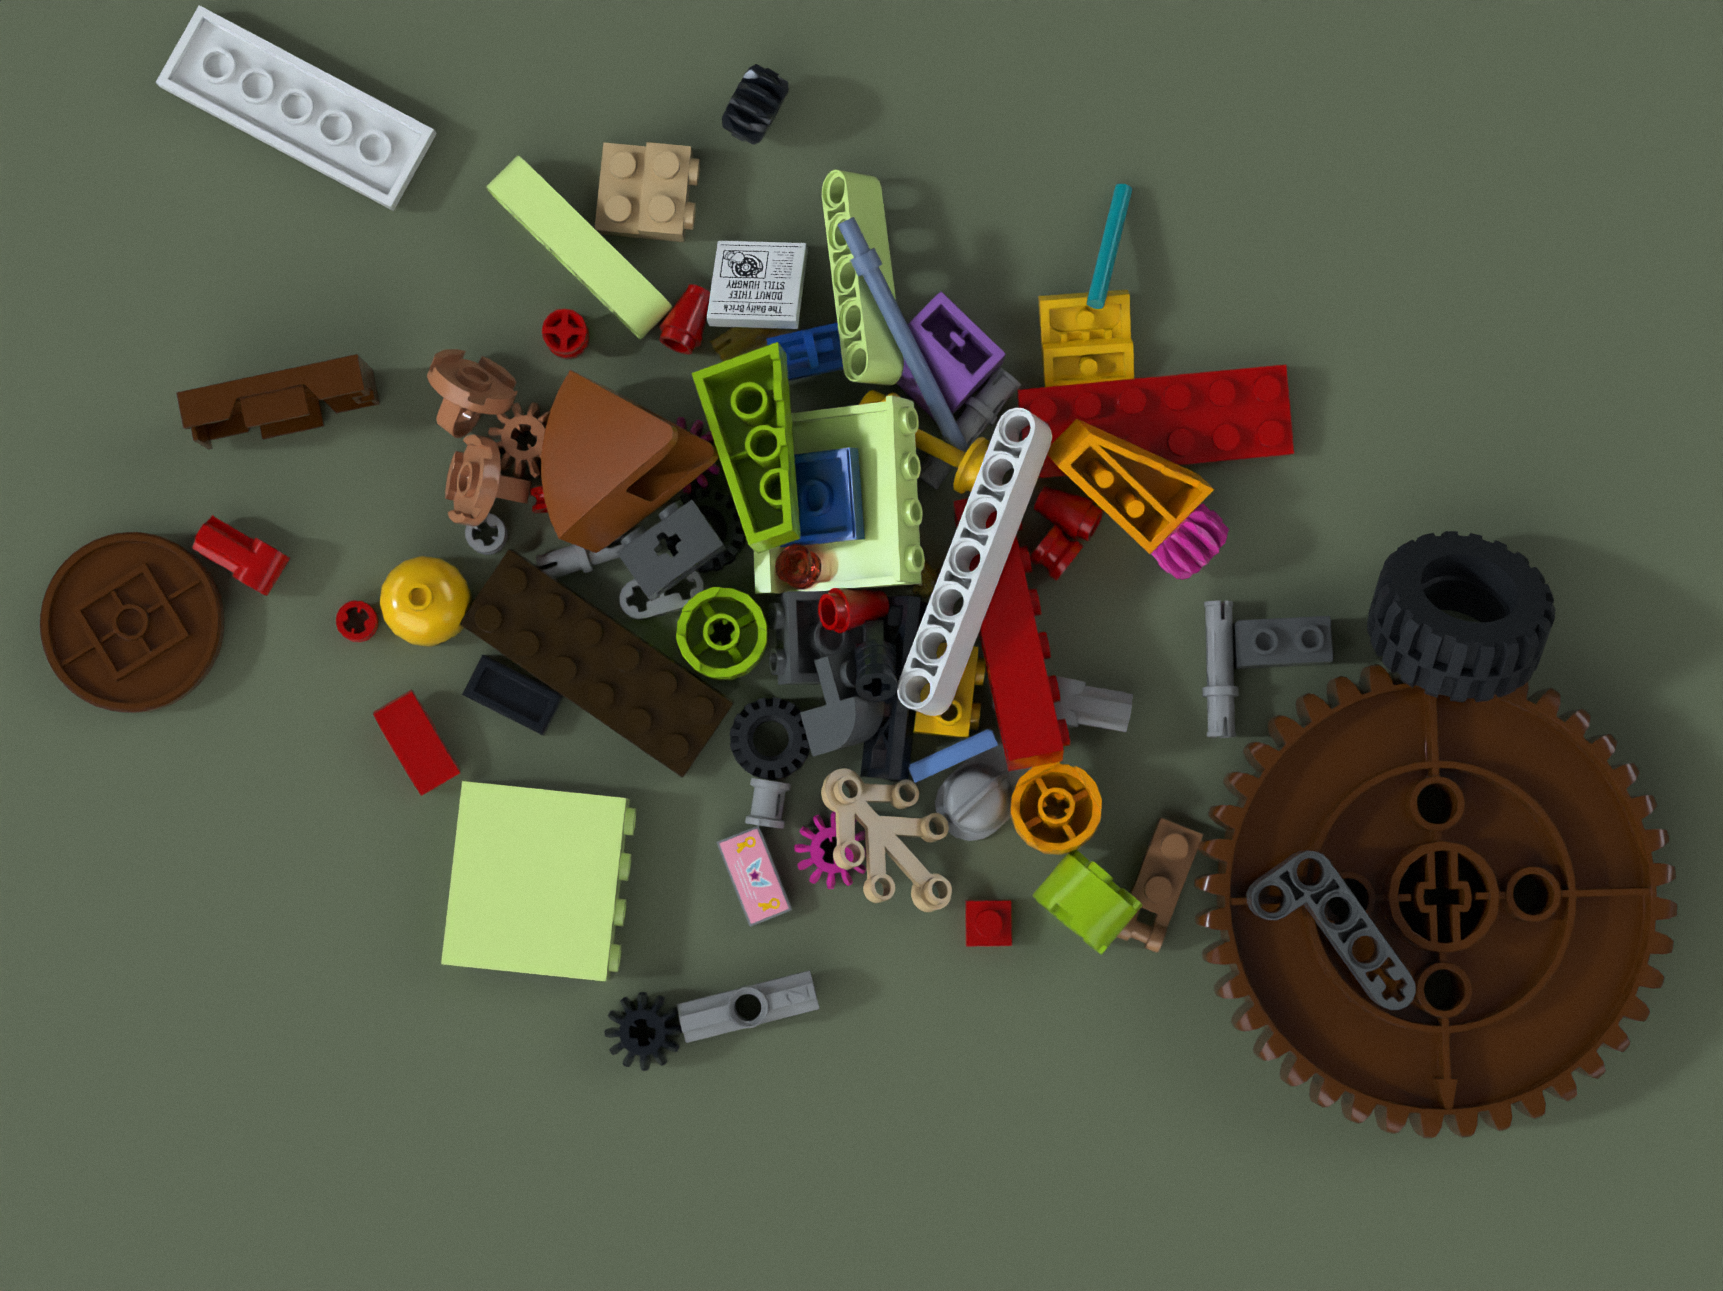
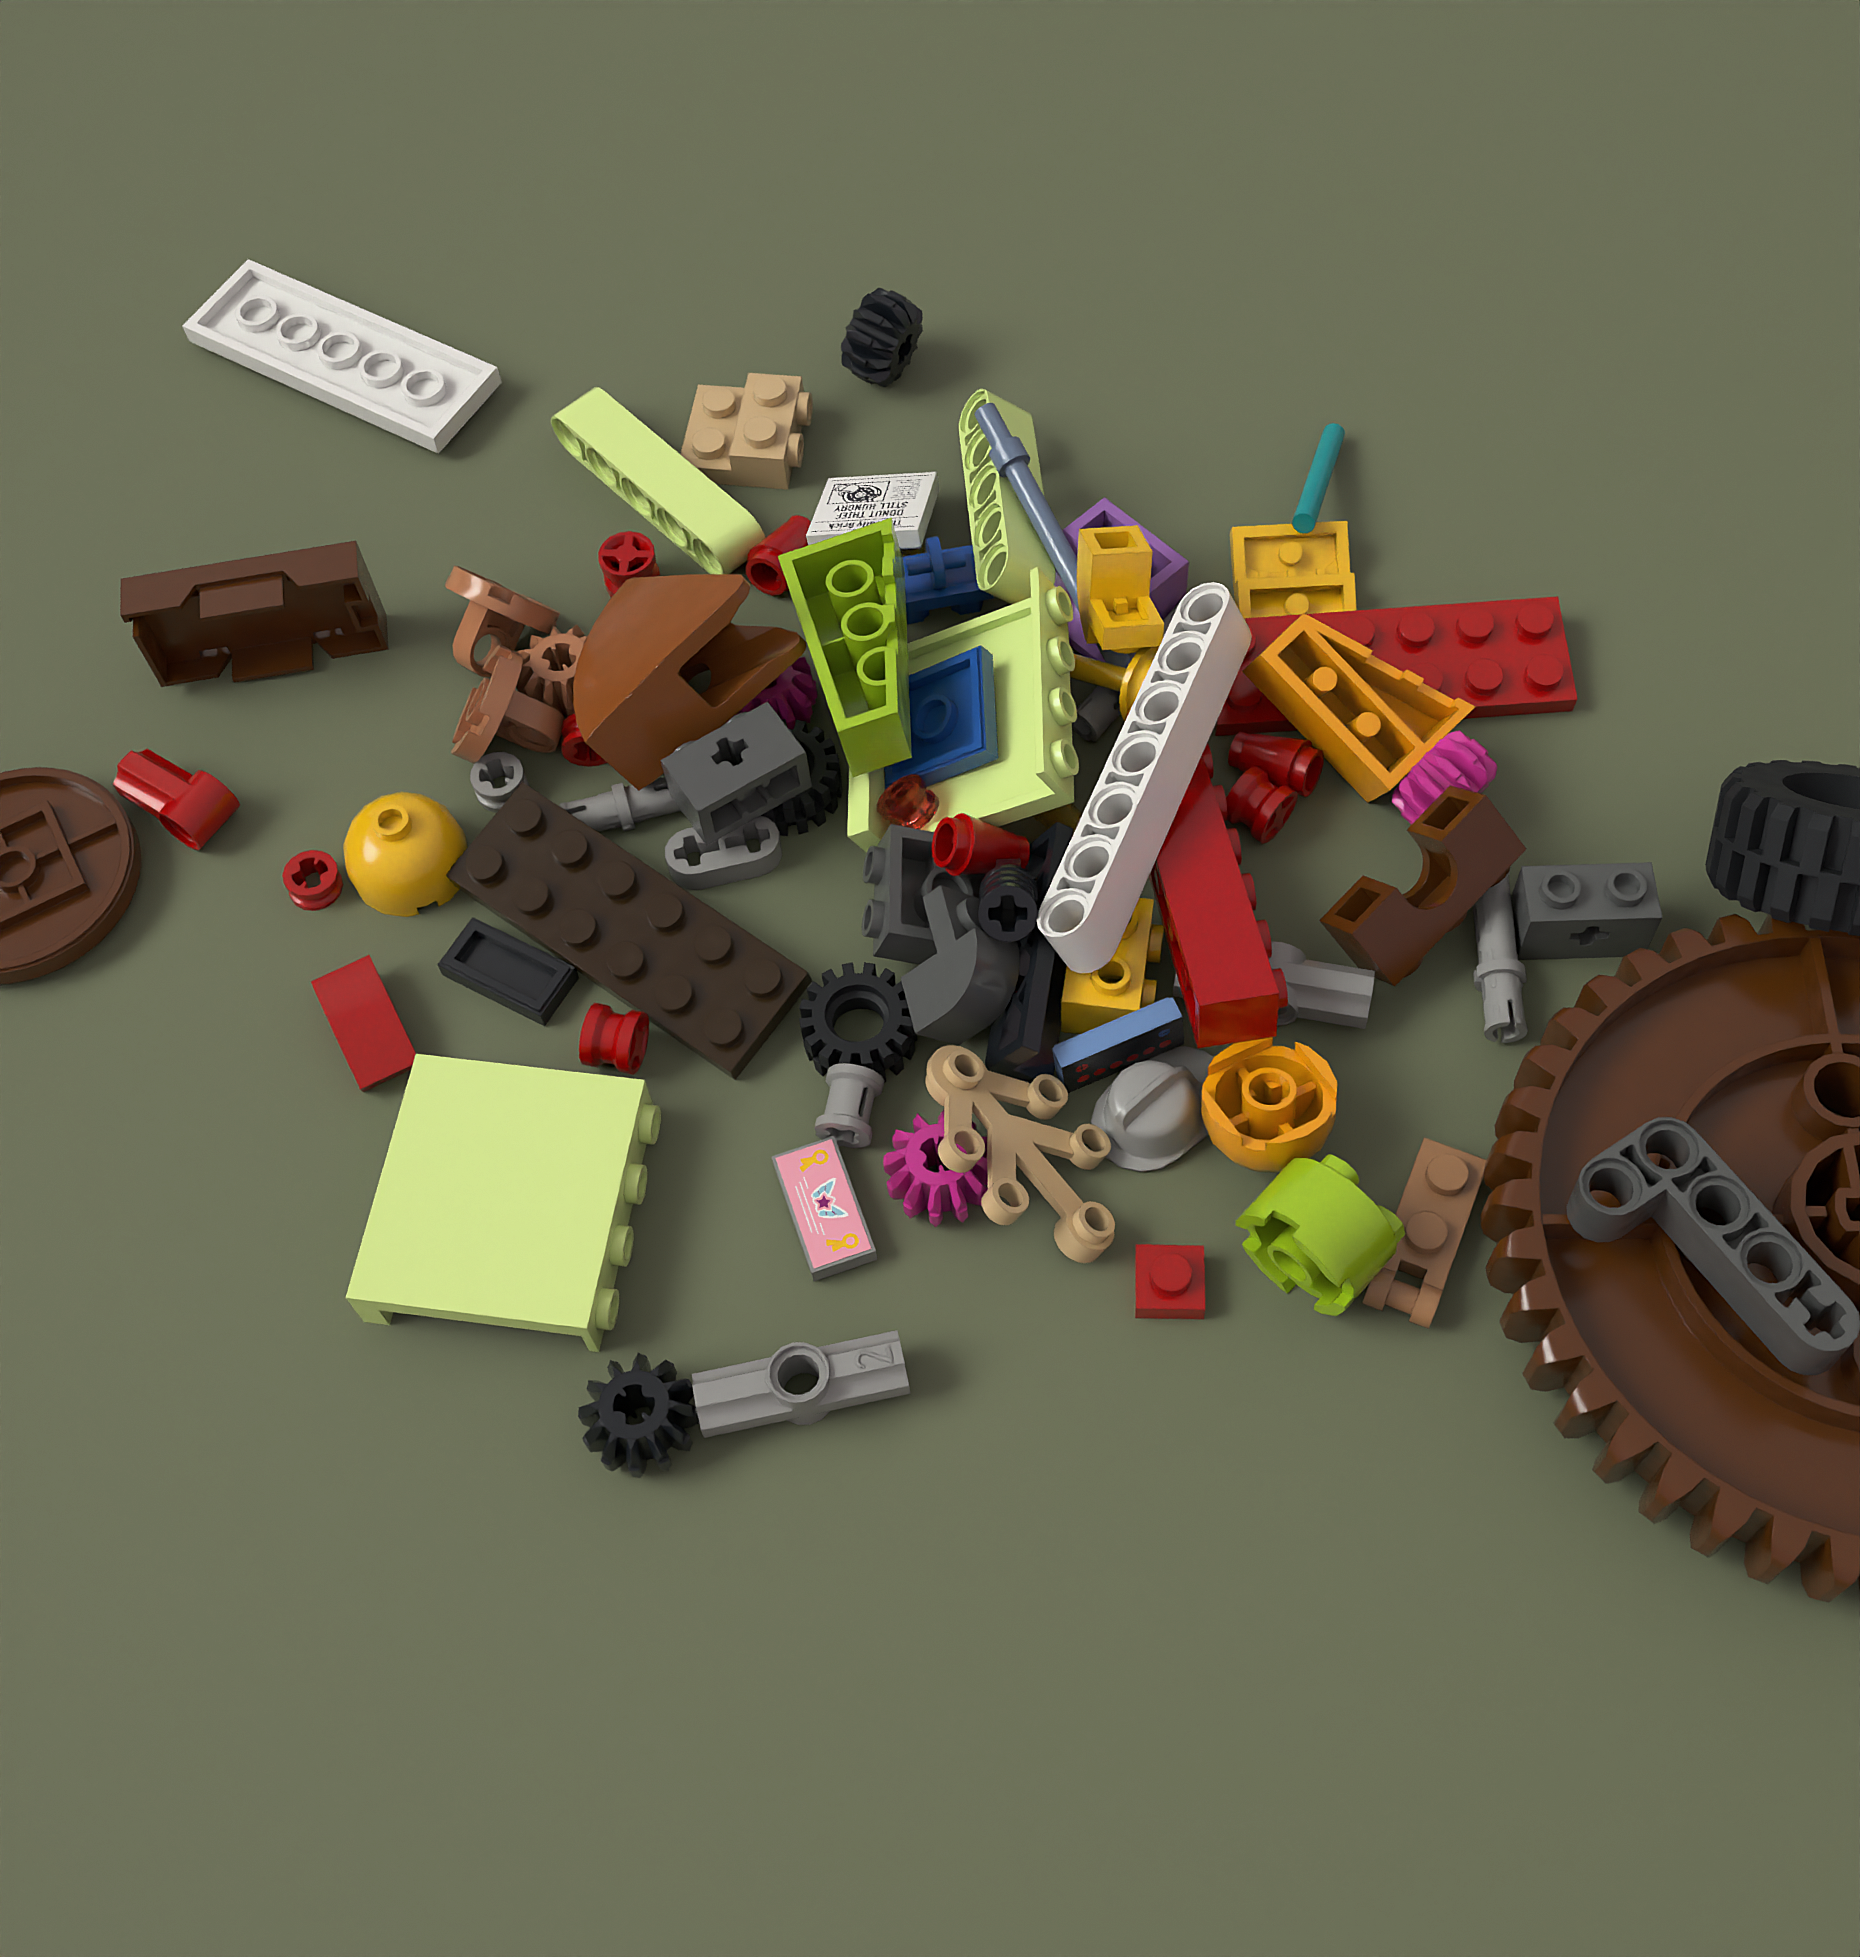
camera: 10 degrees right, 25 degrees down
(598, 755) = (614, 1038): none -> red wheel
(697, 628) = (800, 885): lime brick -> none
(950, 401) = (1116, 588): none -> yellow brick
(1152, 661) = (1463, 854): none -> reddish brown arch

